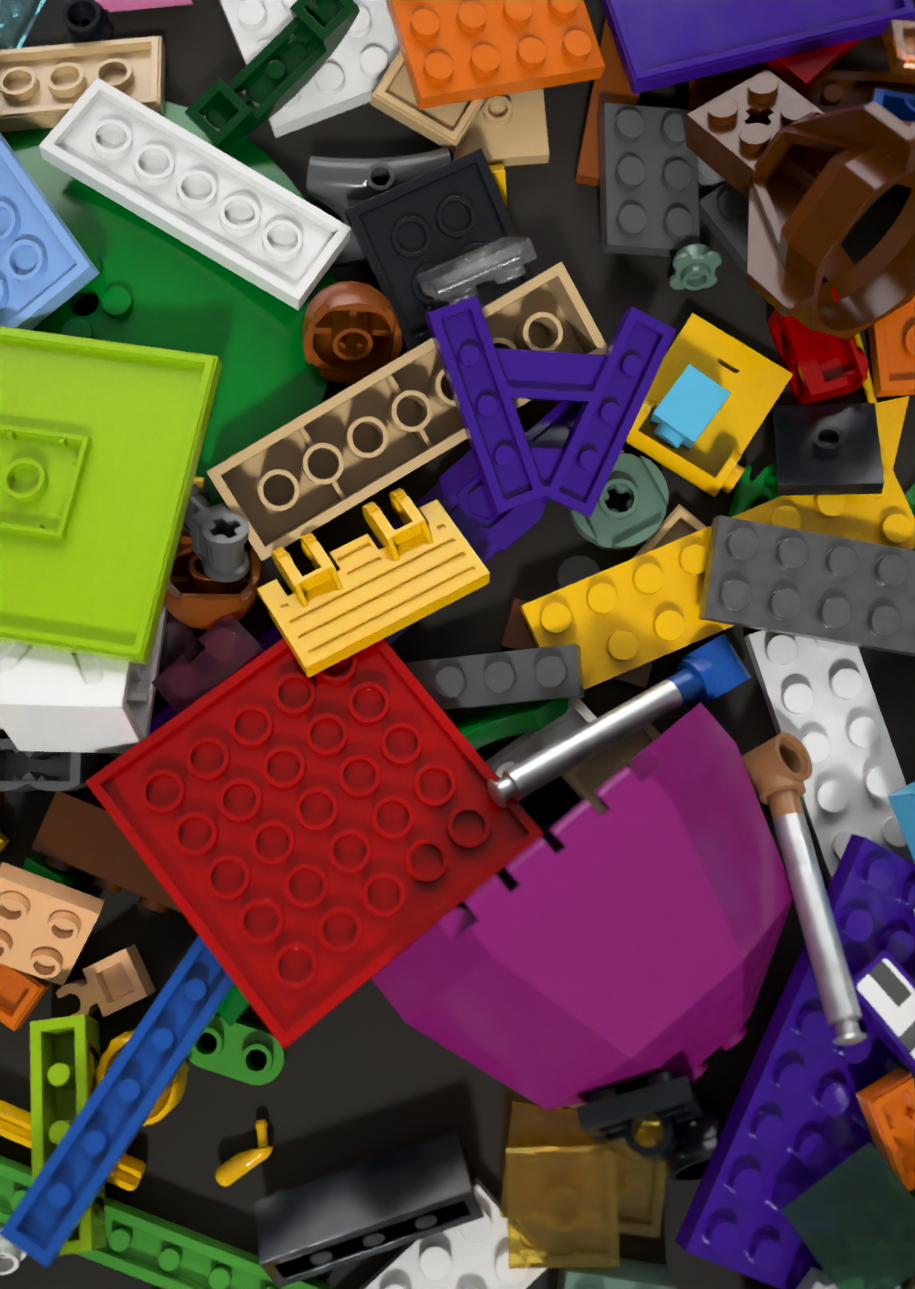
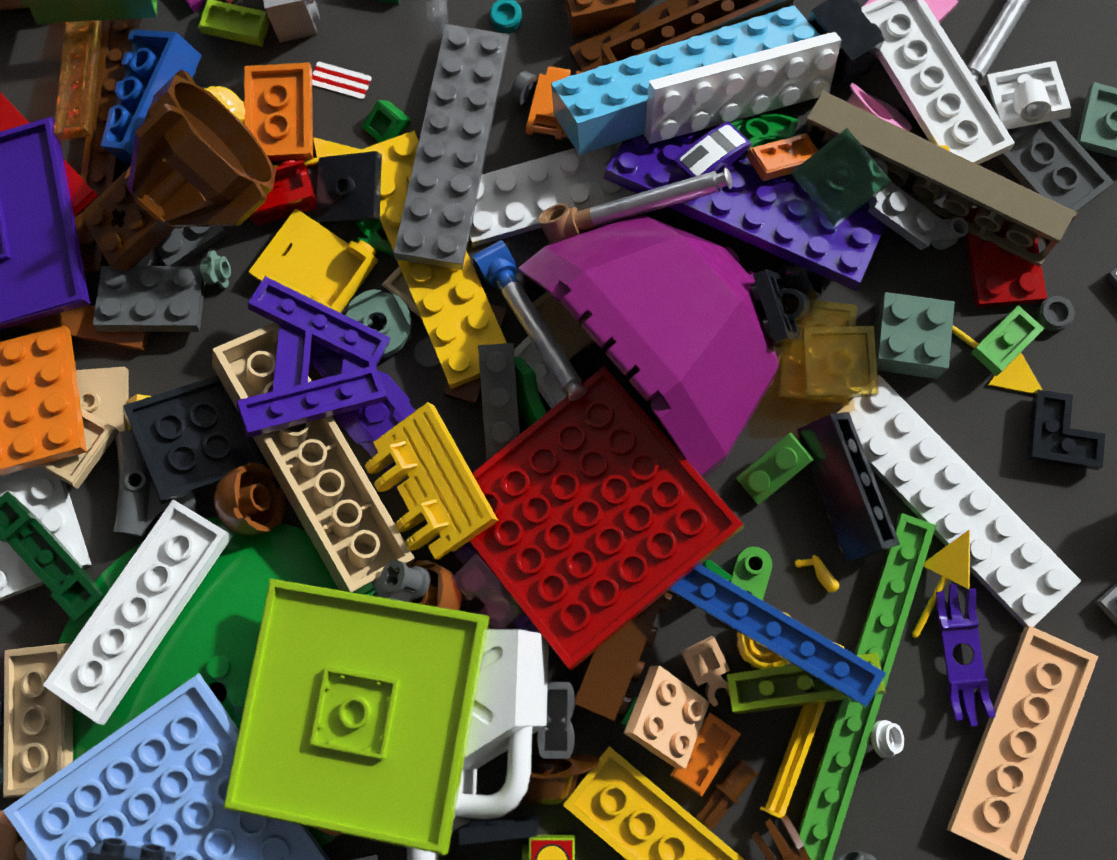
camera: 90 degrees left, 5 degrees down
(398, 1095) = (774, 468): none -> bright green plate
(495, 261) = (212, 406): clear plate -> none
(687, 409) = (317, 274): medium azure brick -> none

